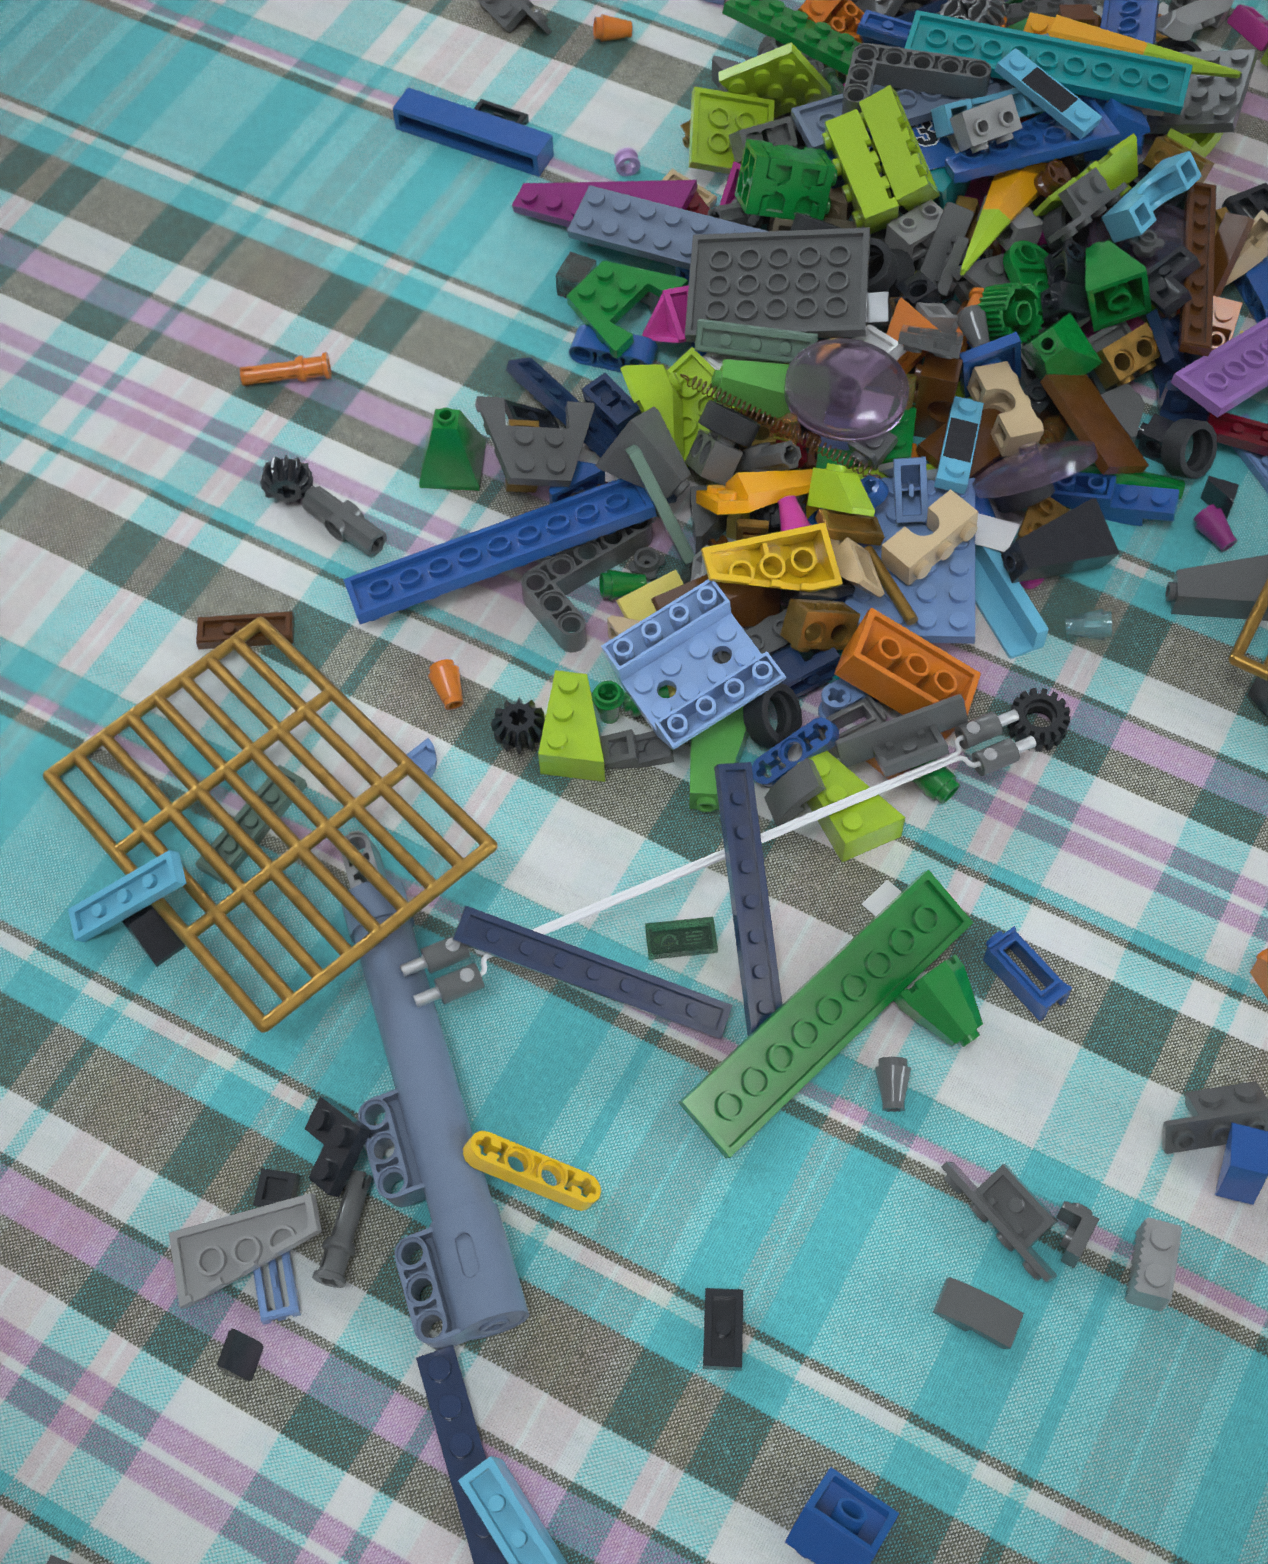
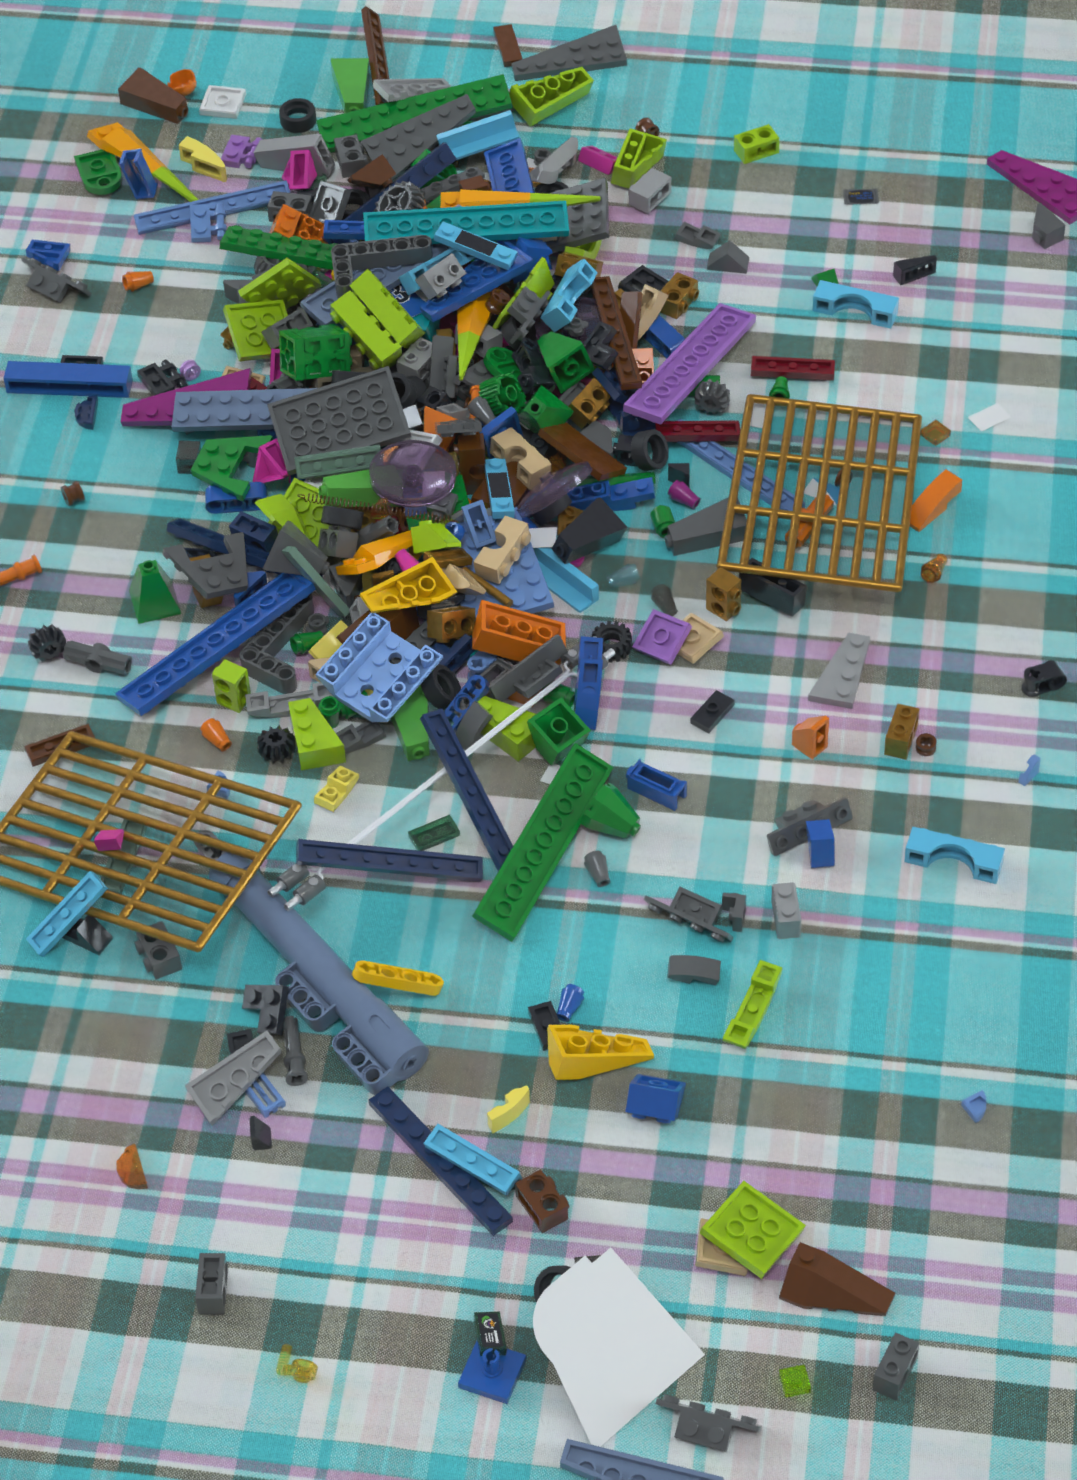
camera: 20 degrees left, 10 degrees down
(42, 1339) = (130, 1169): none -> clear orange tile
(217, 998) = (160, 956): none -> dark grey brick
(227, 803) = (109, 840): none -> dark pink slope
(412, 283) = (72, 493): none -> reddish brown wheel
(479, 180) = (86, 412): none -> dark blue tile
(492, 620) = (231, 685): none -> lime brick
(530, 662) = (277, 706): none -> light grey slope
(578, 818) = (337, 788): none -> light yellow slope
(579, 160) = (156, 380): none -> black plate
(625, 1452) = (515, 1104): none -> light yellow slope
(766, 1405) = (585, 1054): none -> yellow wedge
(771, 1299) = (569, 1001): none -> blue cone
(910, 840) = (557, 730): none -> green slope
(980, 781) = (589, 680): none -> blue slope
(1047, 1417) = (754, 1005): none -> lime slope
(1113, 738) = (662, 636): none -> medium lavender plate
(1135, 679) = (663, 598): none -> clear smoke cone
(1148, 878) = (712, 711): none -> black plate
(1156, 752) = (700, 638): none -> tan plate
(1172, 555) = (661, 519): none -> green brick
(1224, 701) = (723, 594): none -> pearl gold brick

